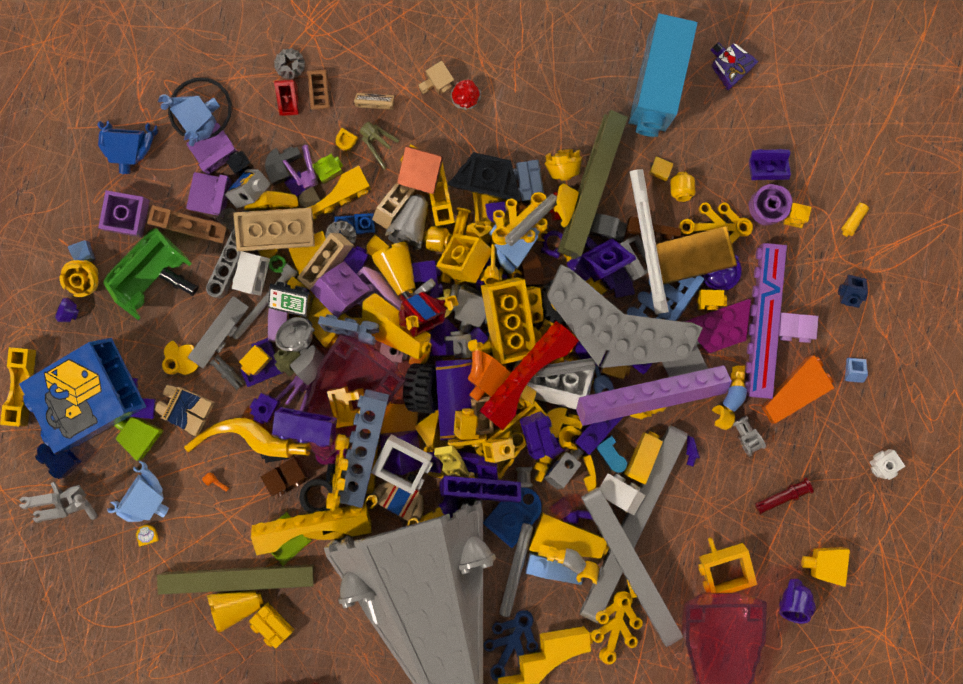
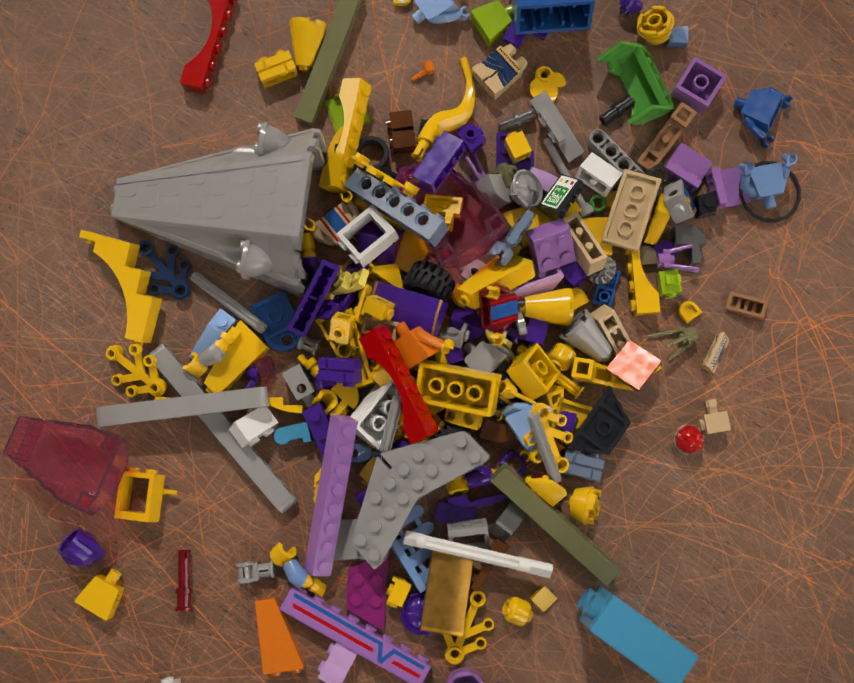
camera: 115 degrees right, 5 degrees down
(287, 97) = (750, 273): red slope -> none
(297, 66) = (775, 294): light grey gear -> none
(606, 259) = (477, 505): dark purple slope -> none
(643, 457) = (277, 461): yellow slope -> none
(692, 451) = (264, 511): dark purple bar -> none

